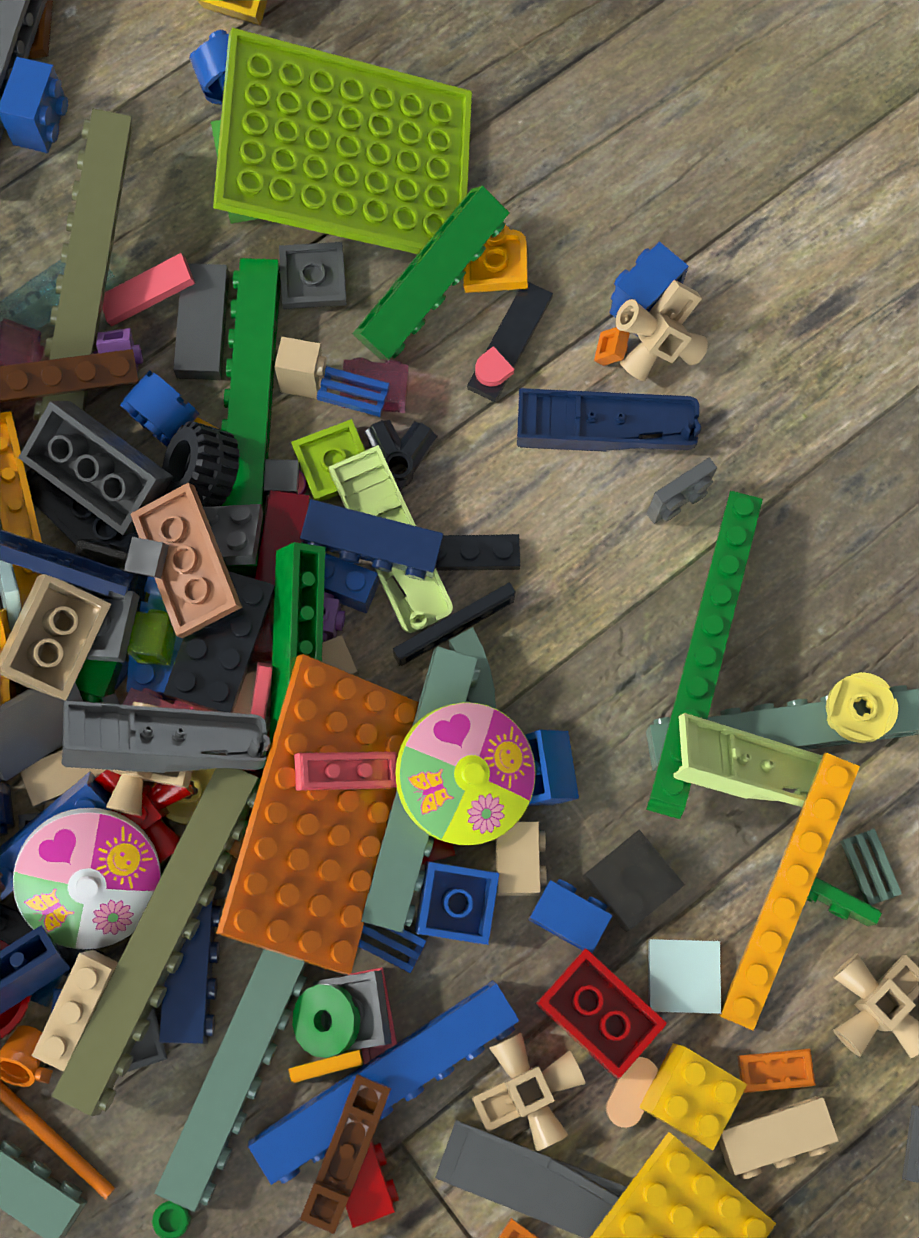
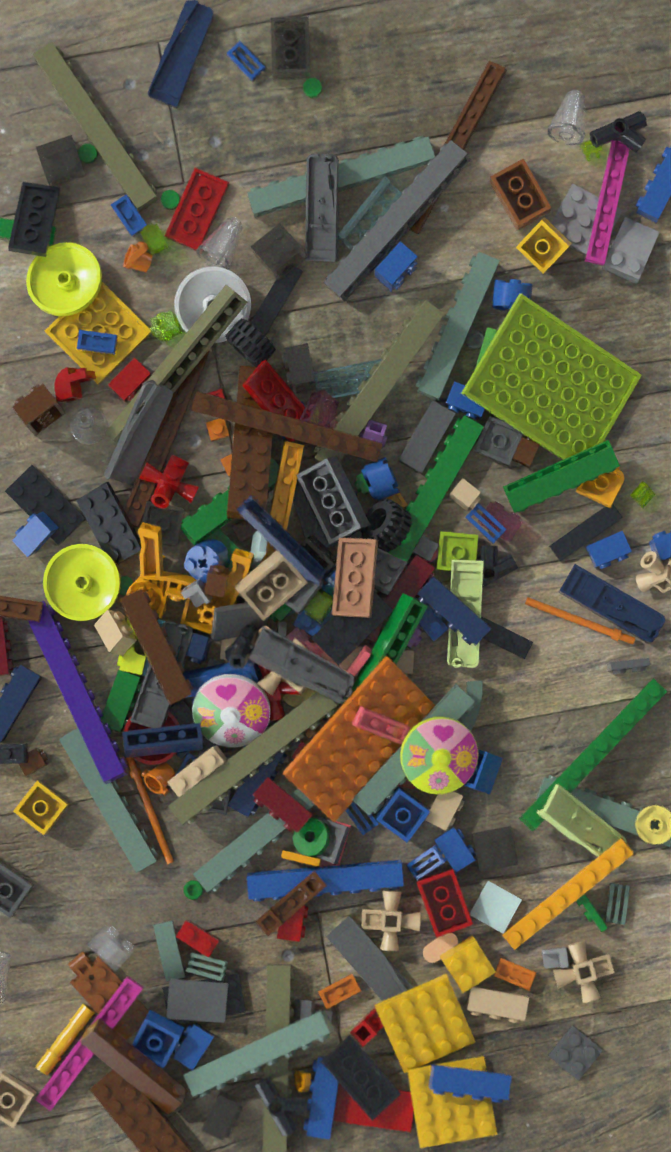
camera: 35 degrees right, 10 degrees up
(48, 770) = (242, 647): none -> black piece
(135, 432) = (361, 484): none -> green plate
(146, 557) = (336, 566): dark grey tile -> none
(147, 289) = (407, 406): coral tile -> none
(169, 146) = (457, 328): none -> sand green brick
(203, 158) = (474, 339): none -> dark grey tile
(234, 238) = (458, 402): none -> blue brick
(248, 992) = (281, 805): none -> dark red brick
(360, 270) = (525, 452): none -> reddish brown brick
(454, 624) = (472, 673): black tile -> none
(492, 368) = (566, 544): coral tile -> none
(548, 938) = (438, 854): none -> blue tile
(558, 346) = (609, 549): none -> blue brick
(564, 247) = (642, 494): none -> clear neon green plate
(611, 346) = (634, 564): orange plate -> none
(635, 463) = (615, 633): none -> orange bar
(825, 1007) = (555, 957): none -> light grey panel

